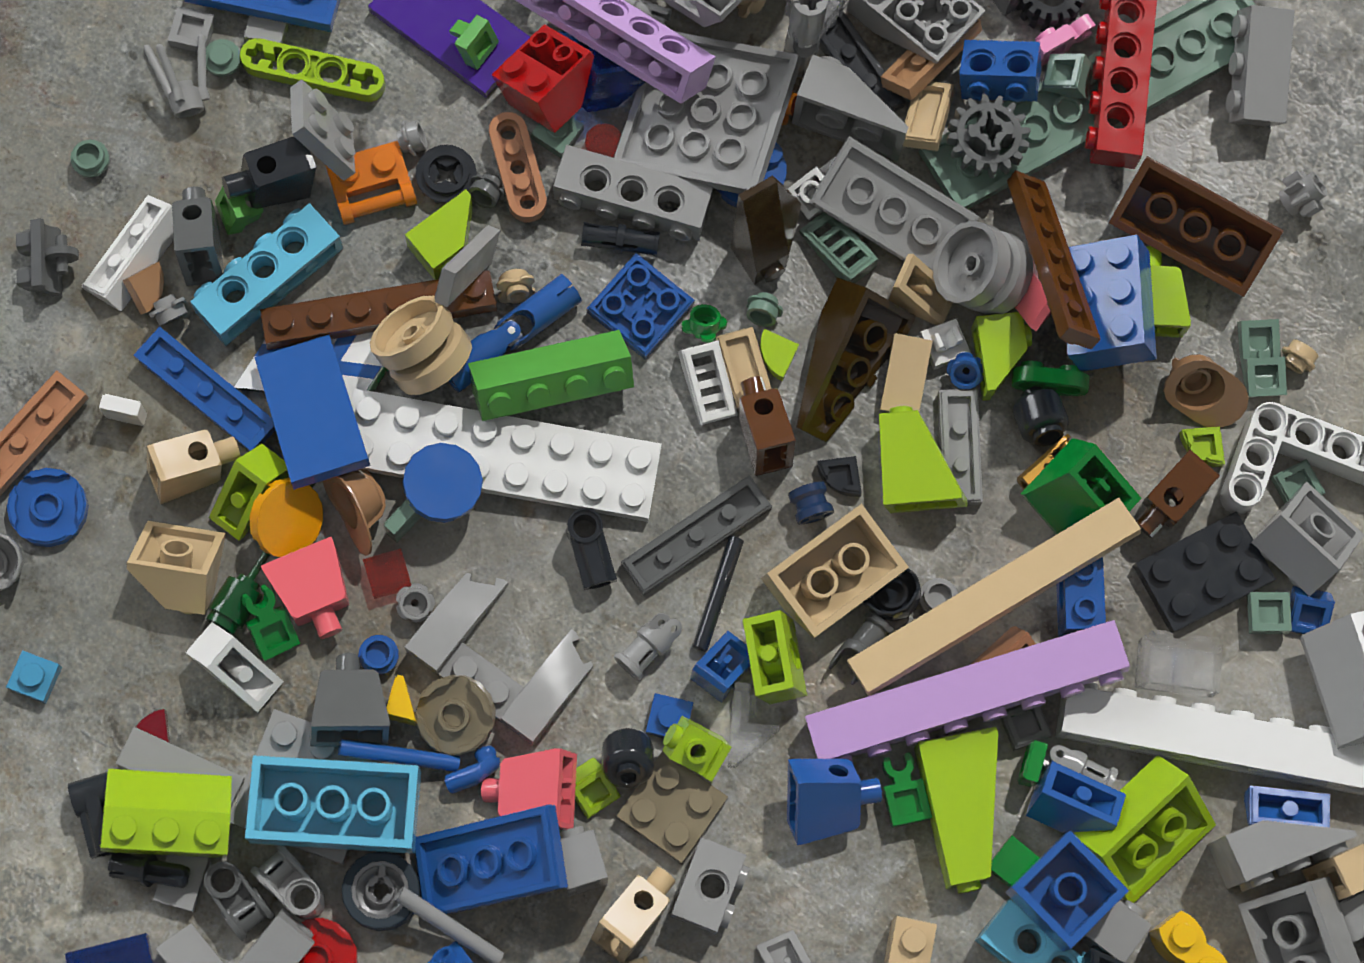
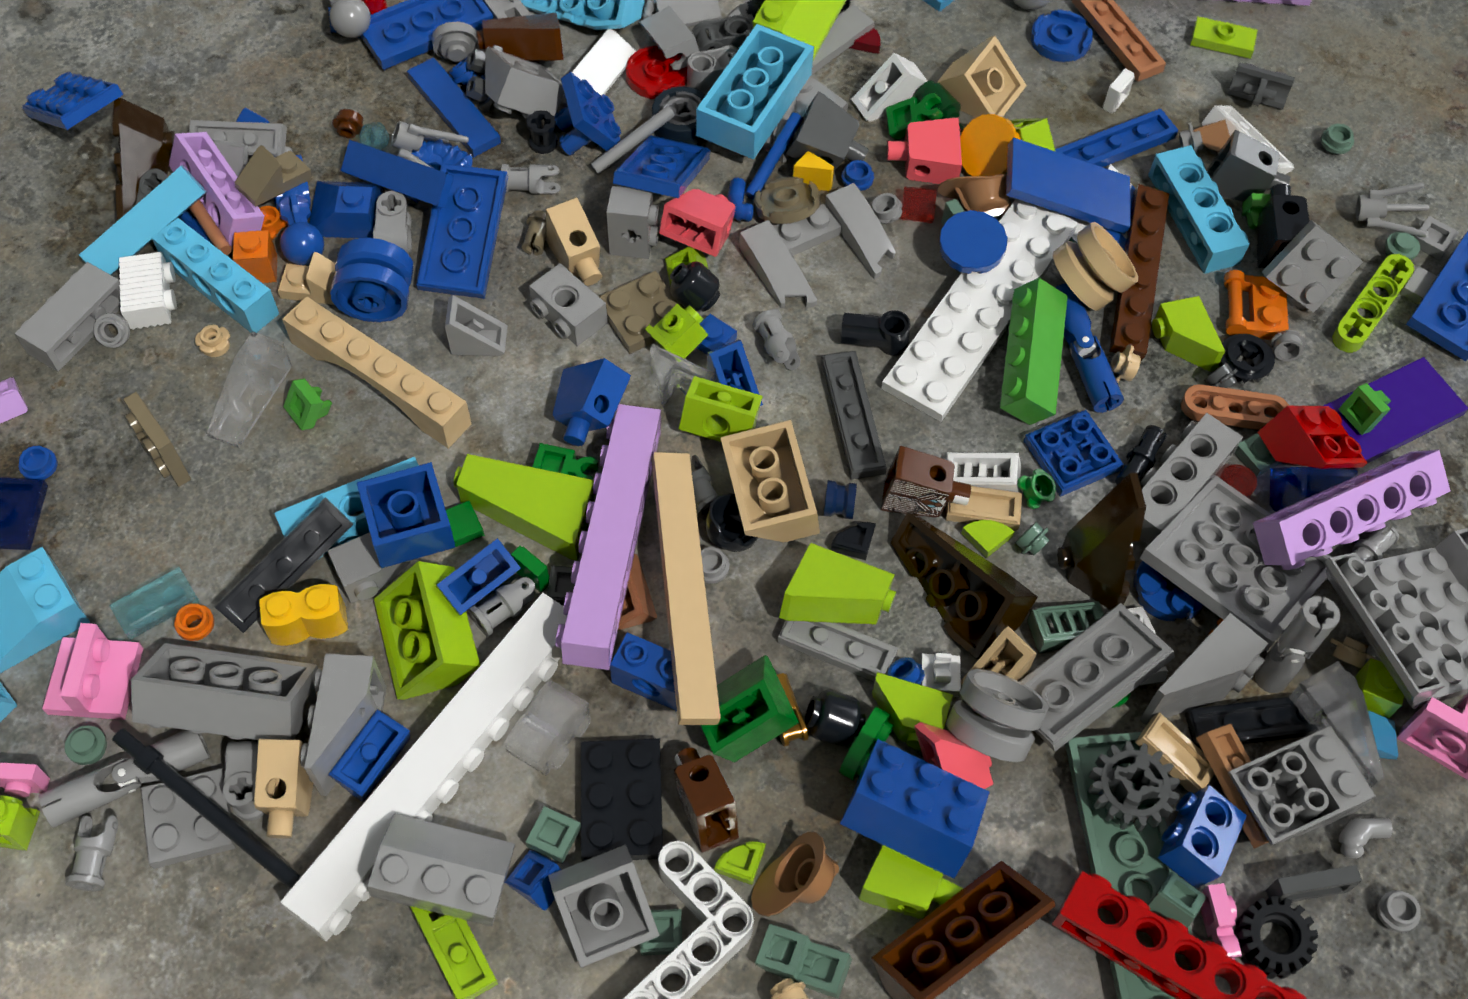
camera: 120 degrees right, 15 degrees down
(188, 463) = (1060, 111): tan torso -> none
(466, 265) = (1153, 317): light grey tile -> none
(718, 593) = (797, 409): black bar -> none
(906, 372) = (923, 624): tan tile -> none
(1053, 261) = (977, 762): reddish brown plate -> none

